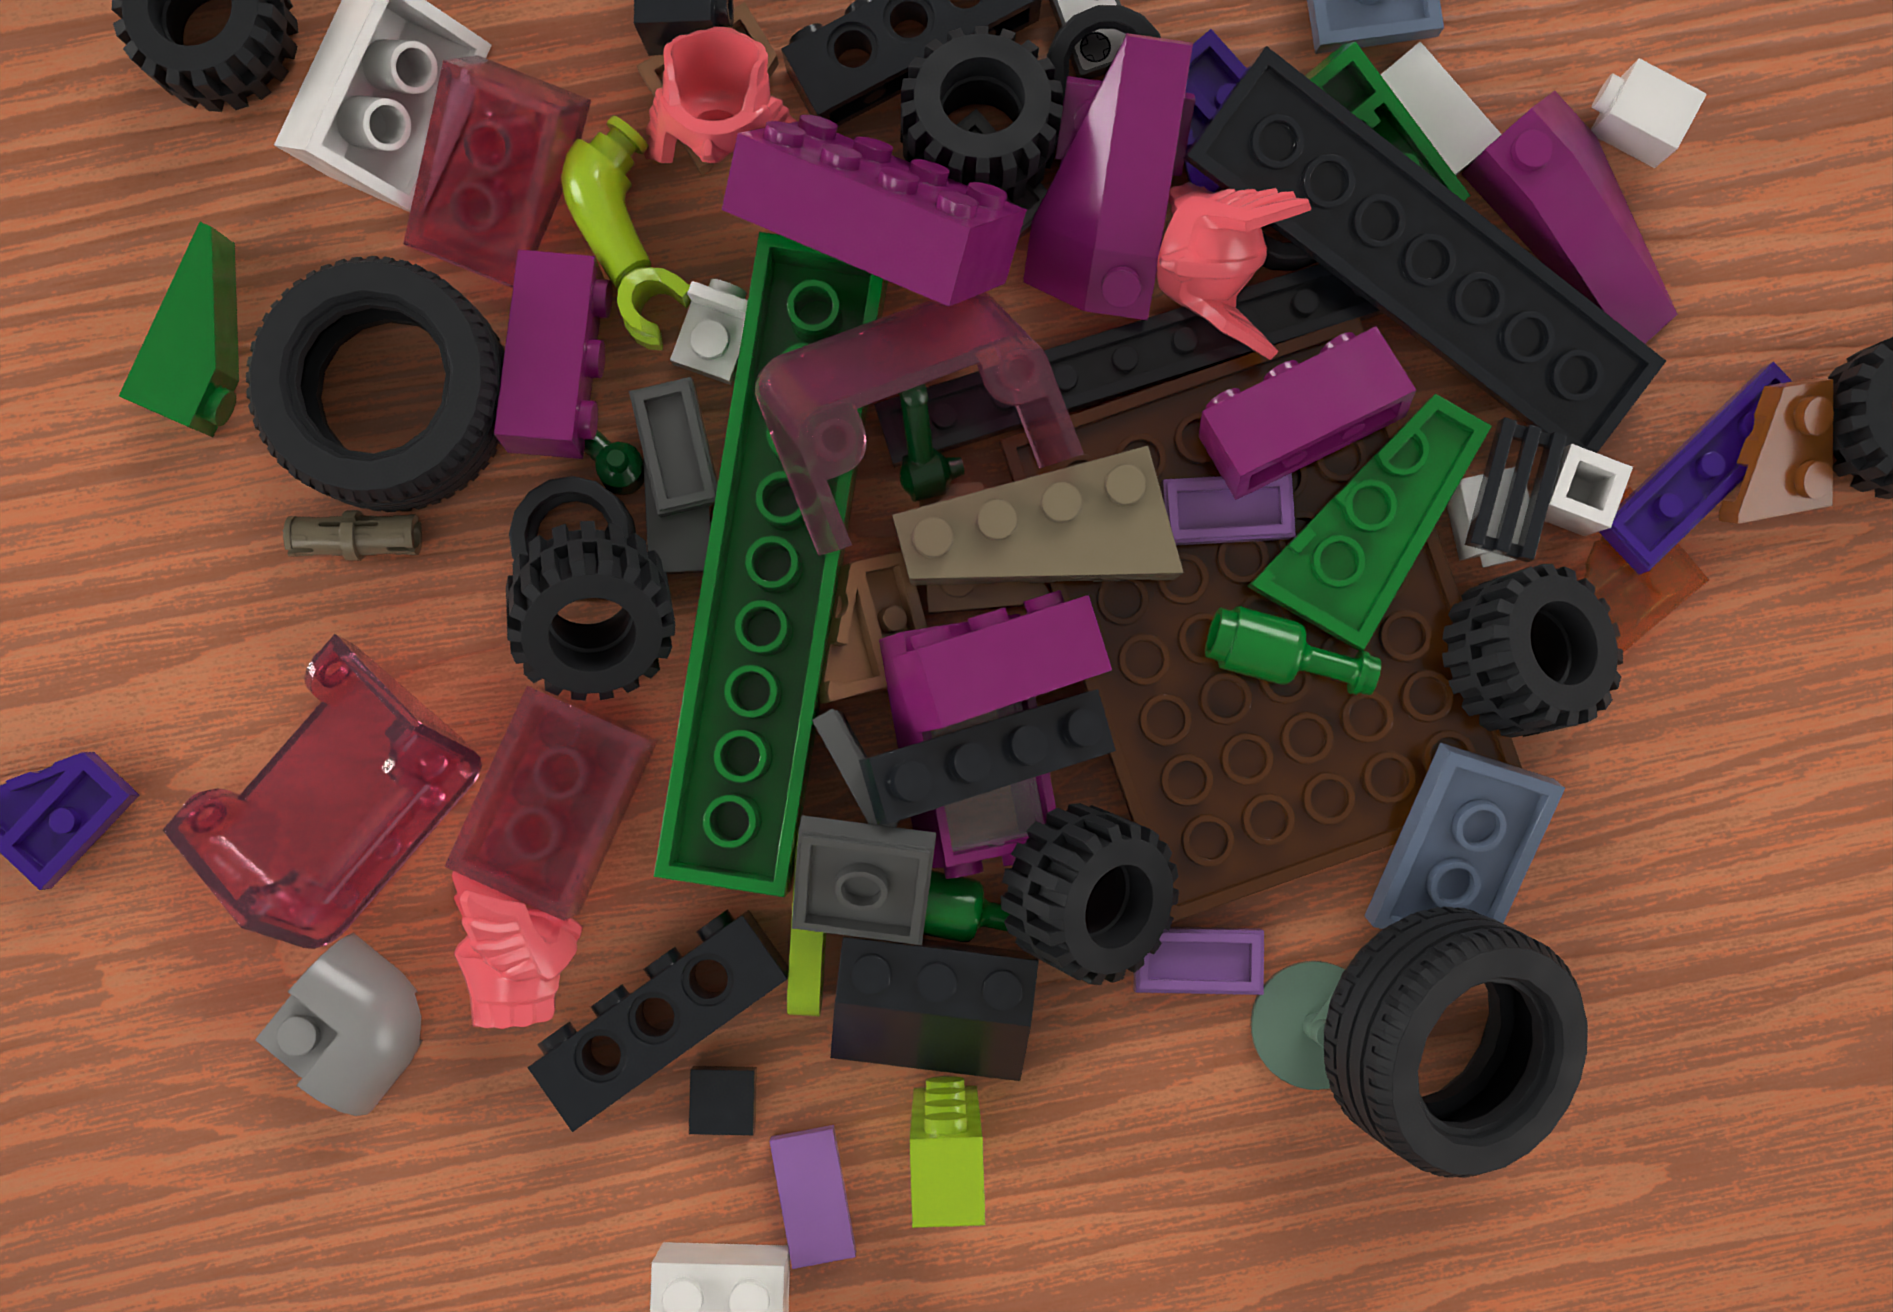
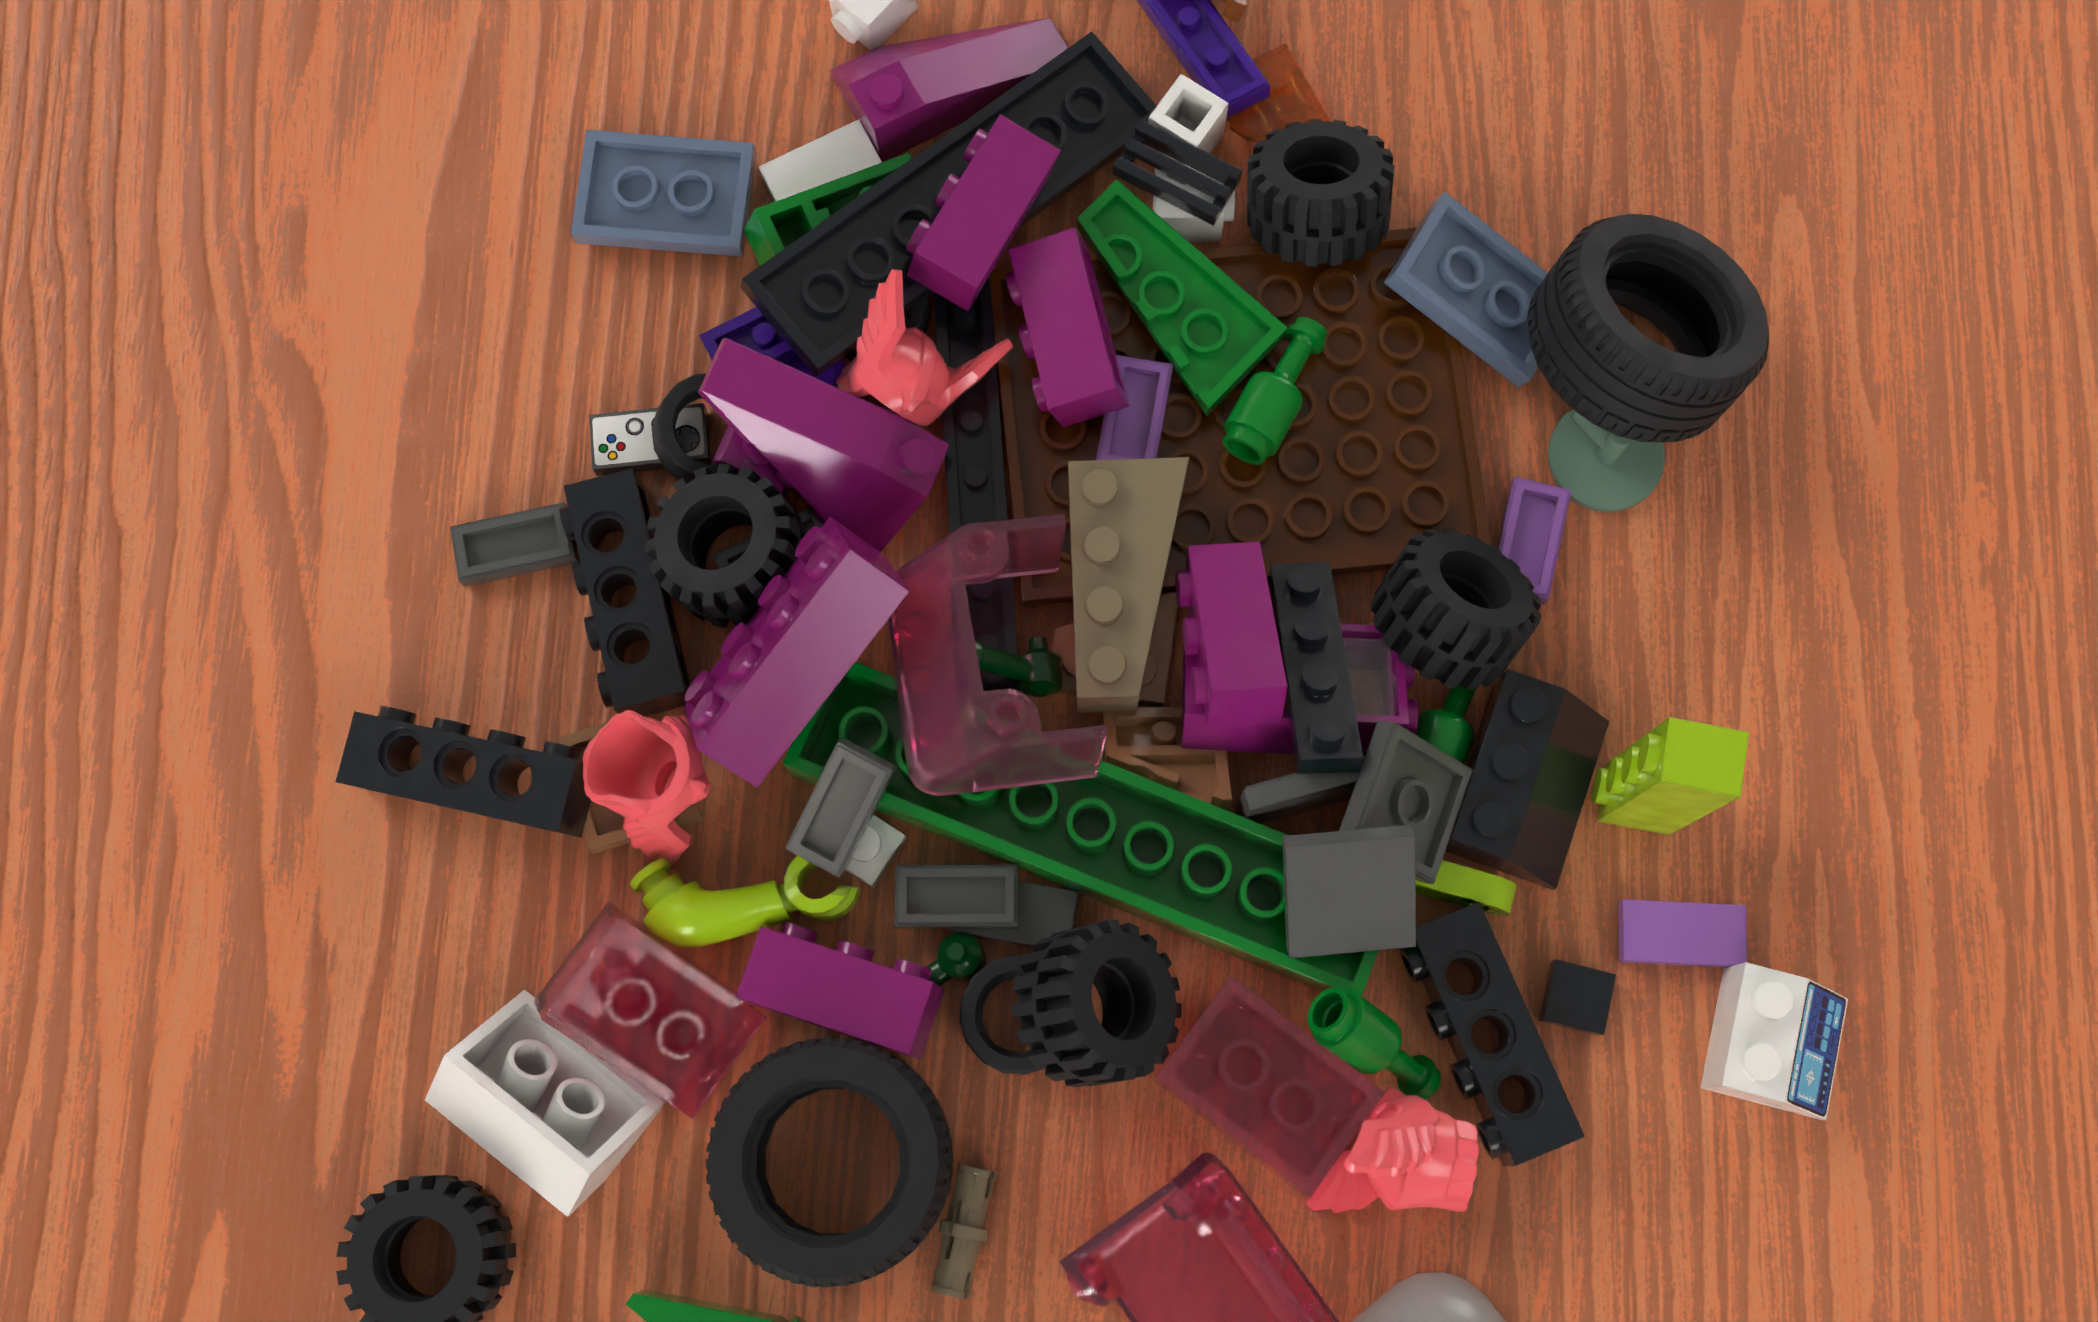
camera: 70 degrees left, 10 degrees down
(616, 894) = (1369, 1040): none -> green piece
(727, 302) = (841, 807): none -> dark grey tile
(749, 840) = (1349, 891): none -> dark grey tile
(1412, 284) = (980, 211): none -> magenta brick

